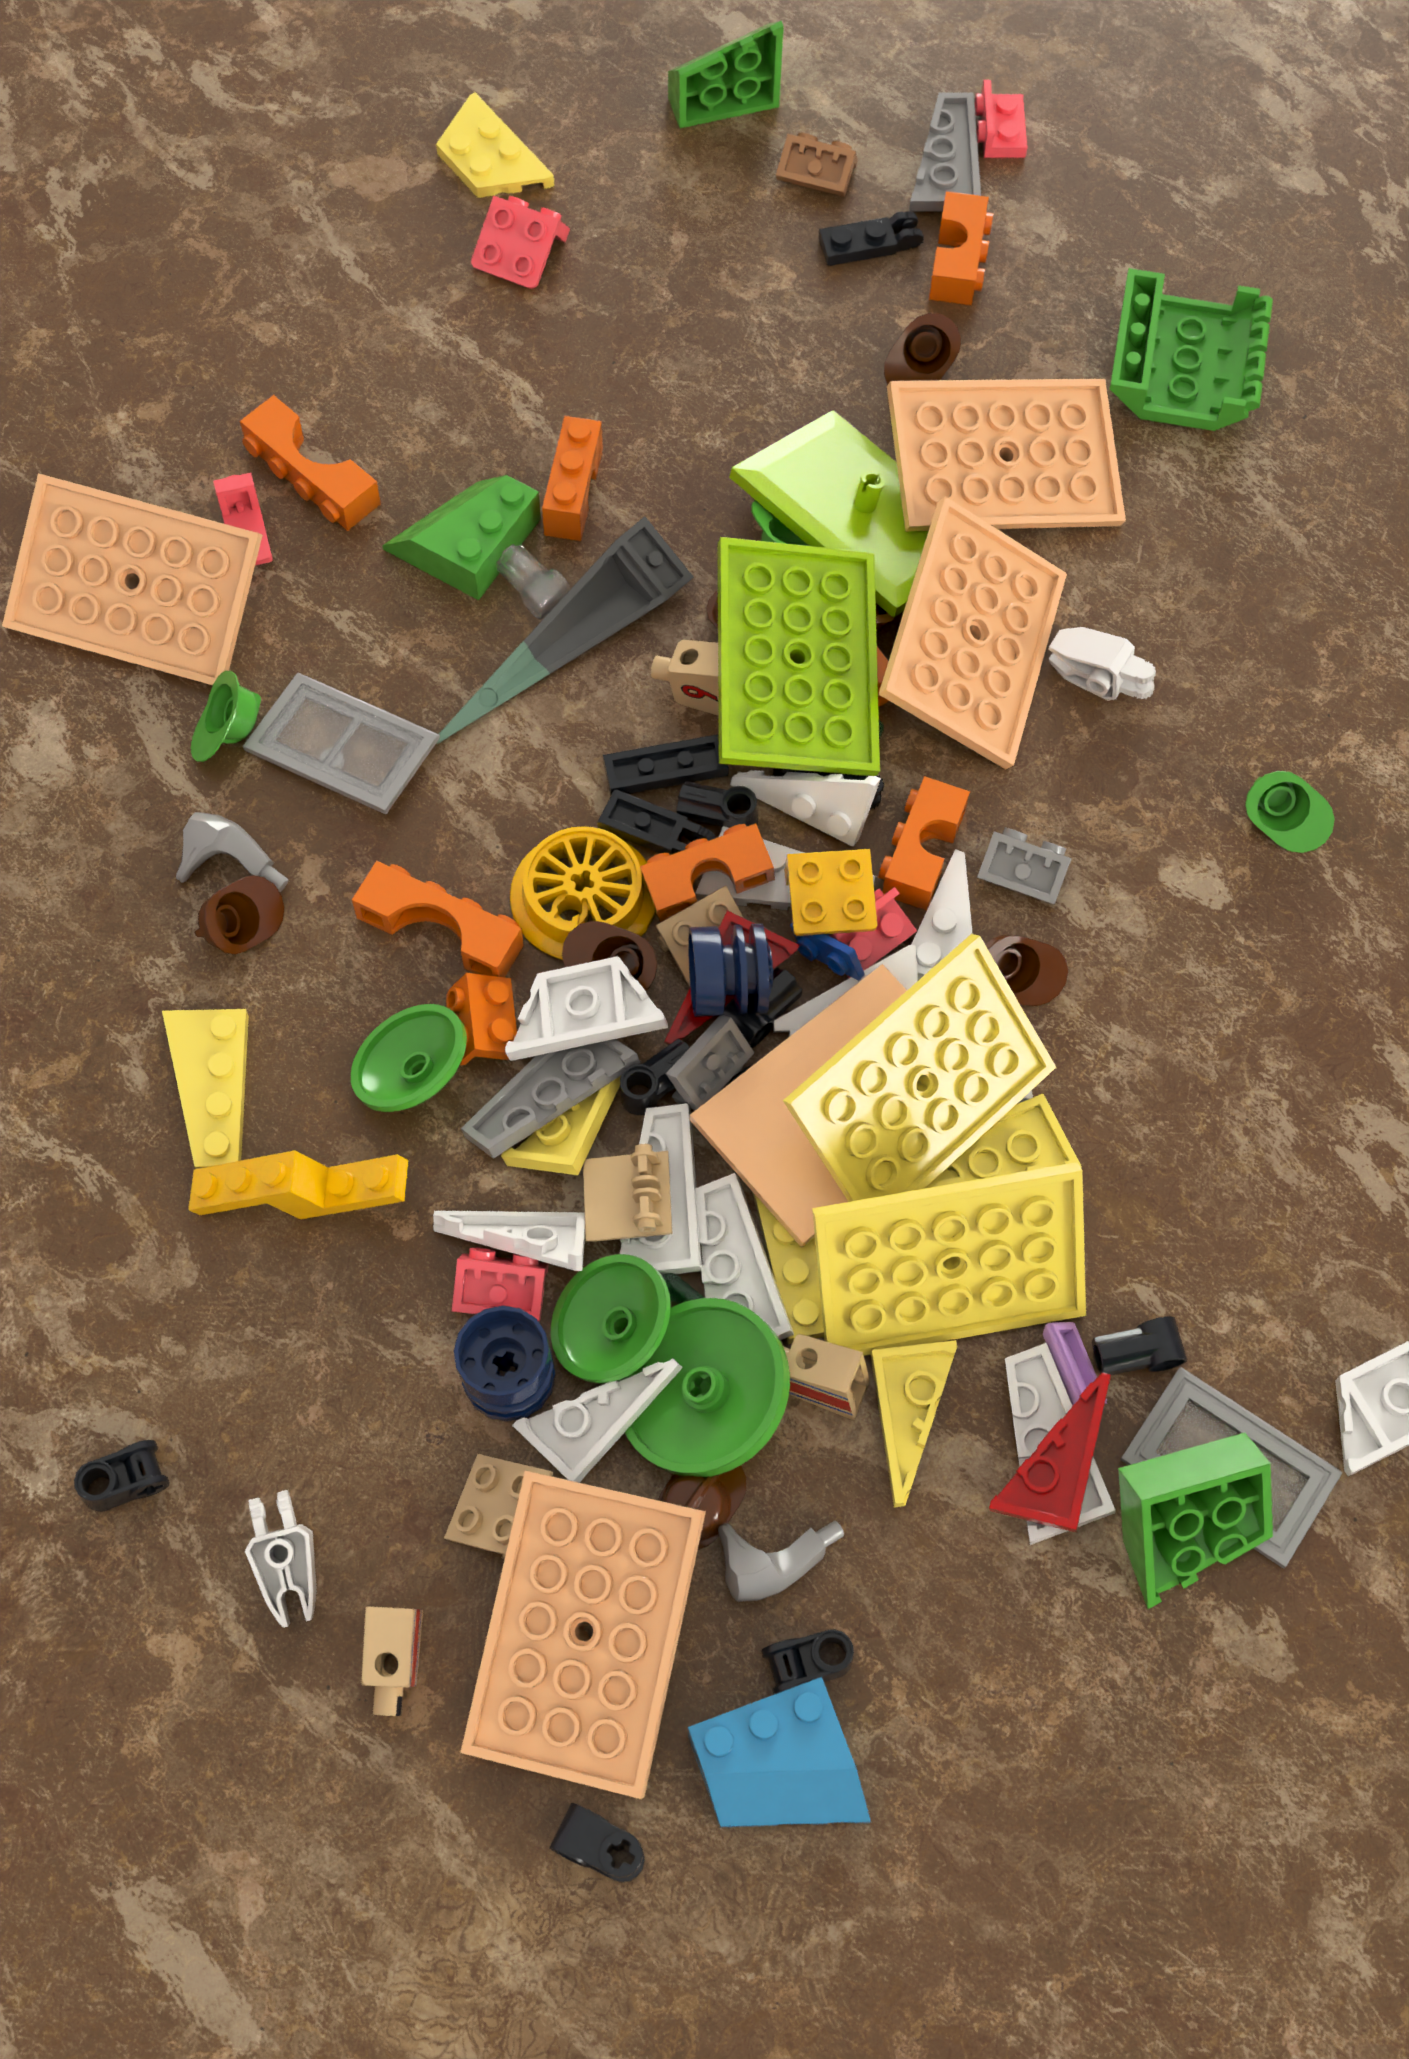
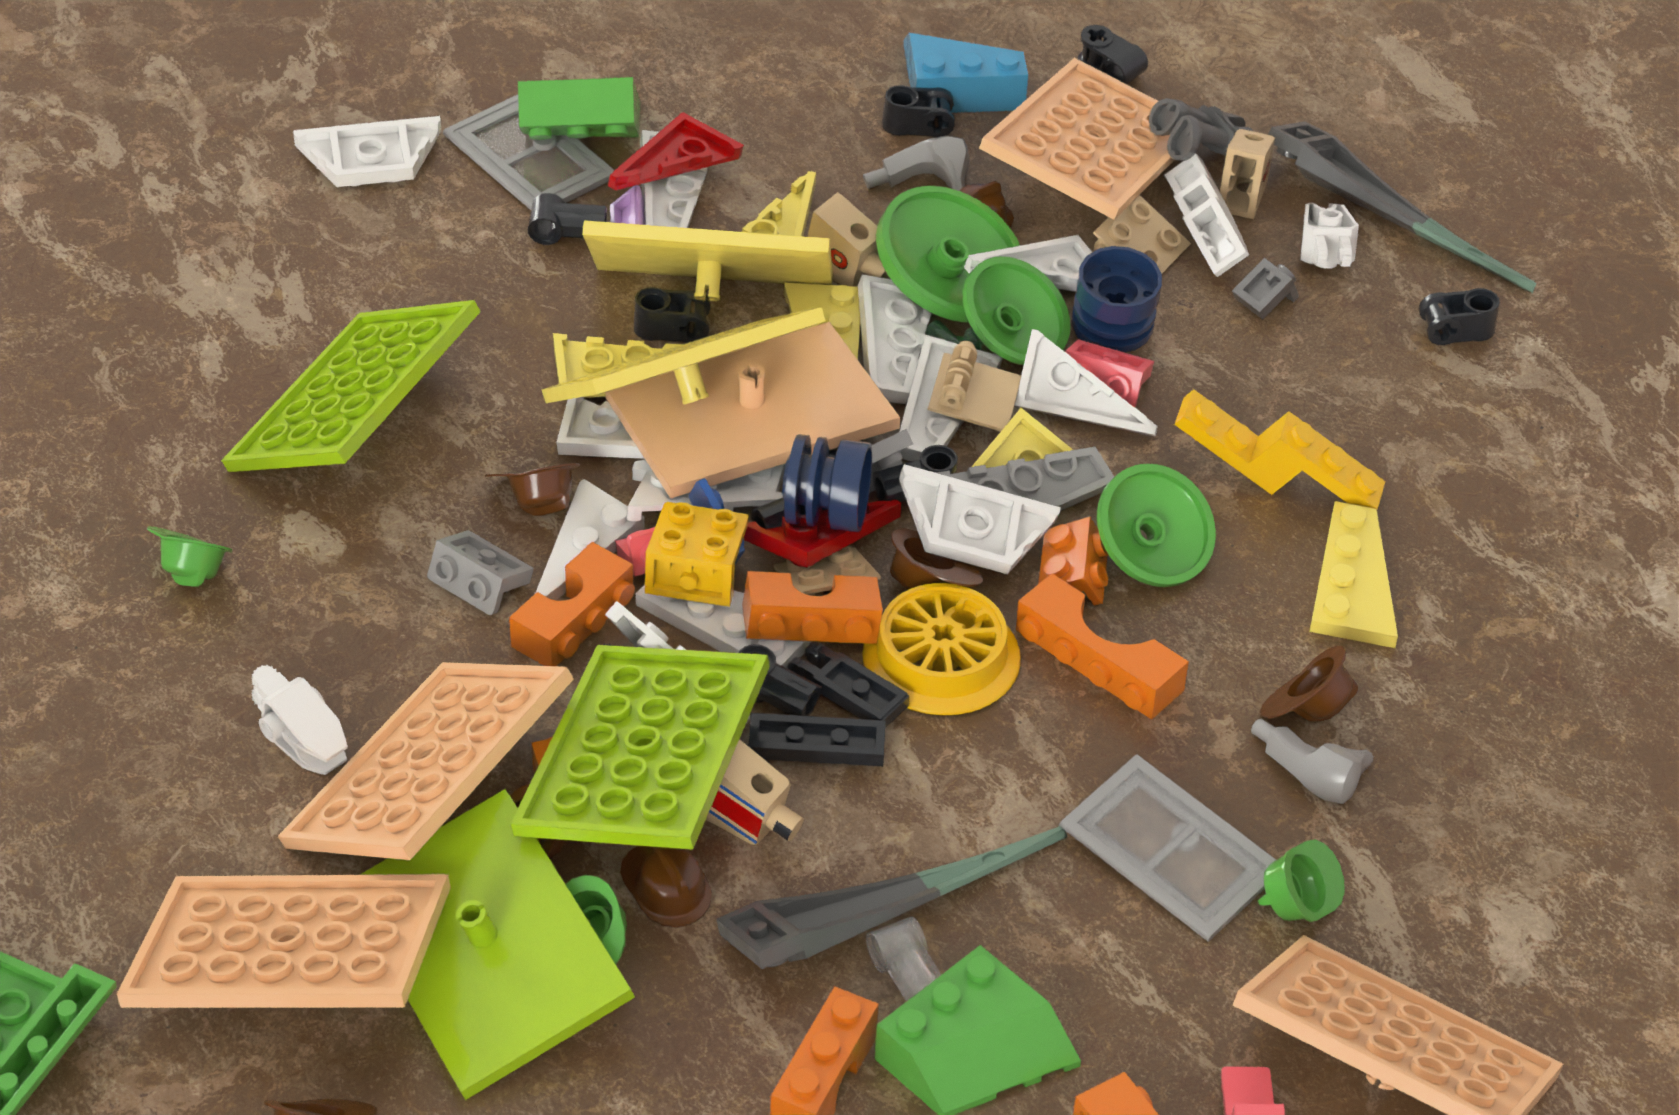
camera: 165 degrees left, 20 degrees down
(280, 1699) = (1333, 166): none -> dark grey plate
(343, 1463) = (1266, 288): none -> flat silver bracket
(430, 1570) = (1207, 215): none -> white slope
(449, 1723) = (1193, 126): none -> dark grey piece
(1234, 1014) = (351, 387): none -> lime piece

